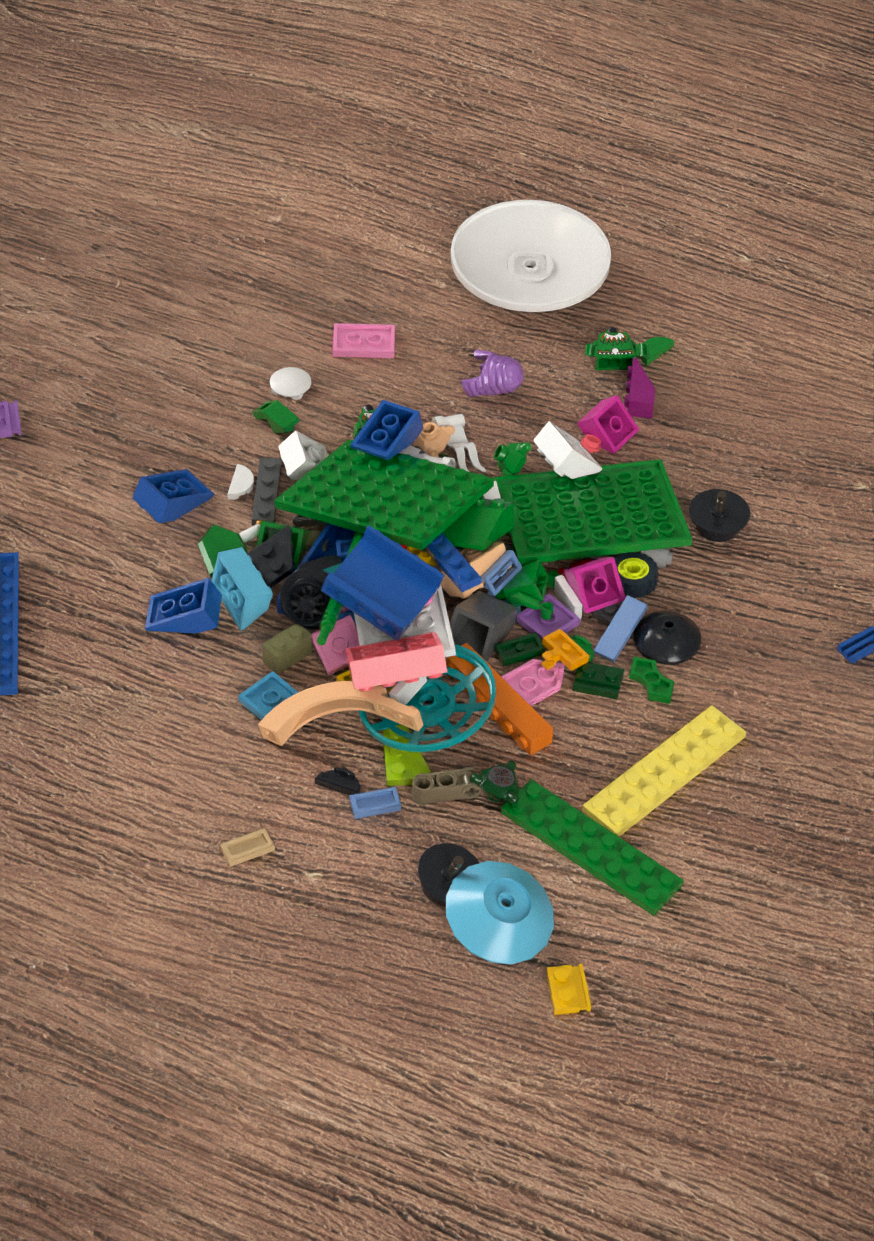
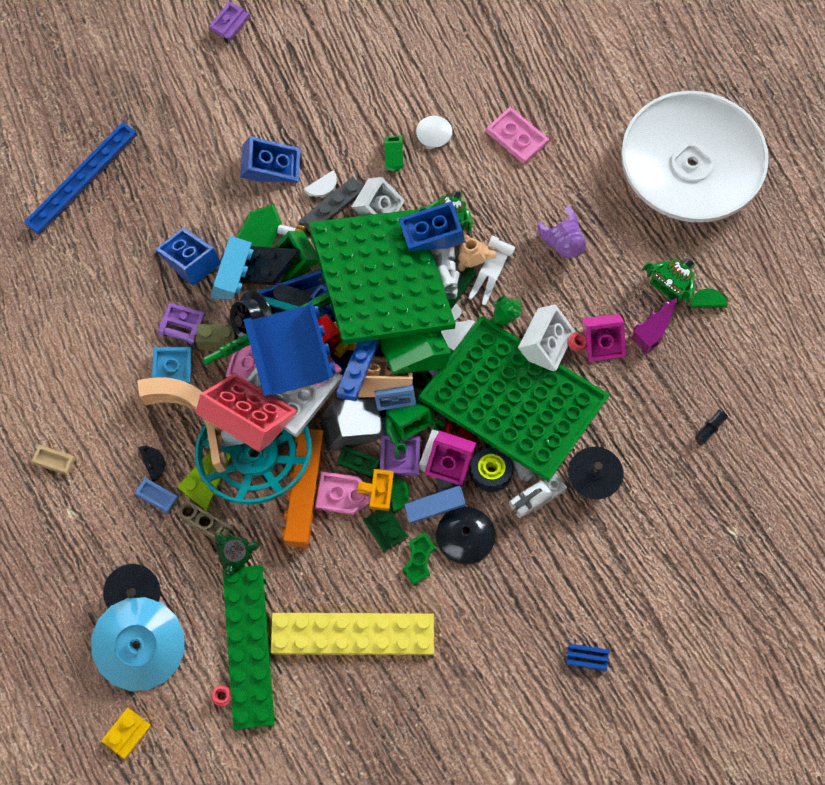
camera: 45 degrees right, 20 degrees up
(238, 657) = (181, 317): none -> medium lavender plate
(614, 891) = (218, 690): none -> coral plate
(691, 565) = (537, 496): none -> white plate
(761, 426) = (711, 426): none -> black axle

